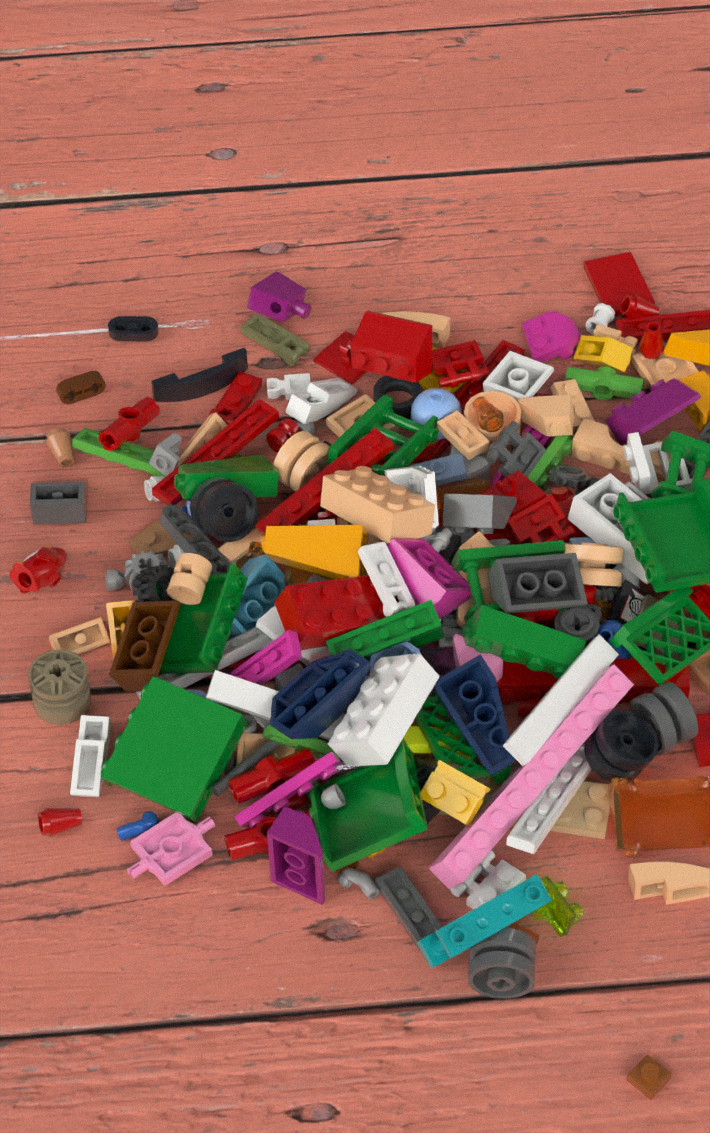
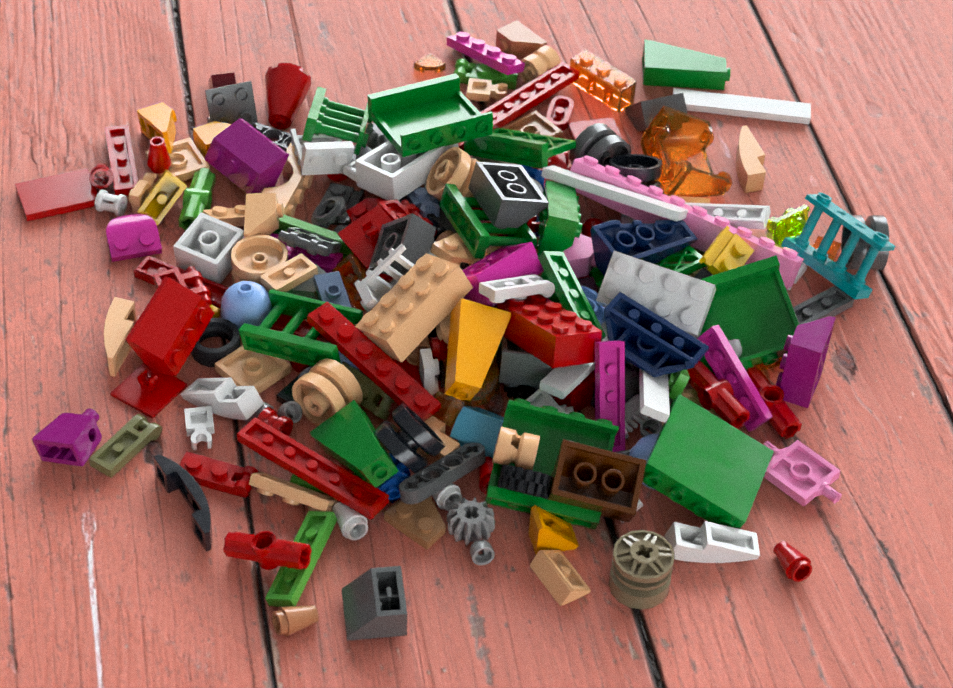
camera: 100 degrees left, 5 degrees down
(39, 569) = (485, 608): red animal -> none
(80, 387) = (200, 610): reddish brown beam -> none
(133, 328) = (103, 574): black plate -> none
(138, 827) = (783, 497): blue arm -> none
(166, 454) = (321, 505): light grey bracket -> none
(488, 415) = (272, 249): clear orange cone -> none
(649, 1076) = (920, 179): dark orange plate -> none

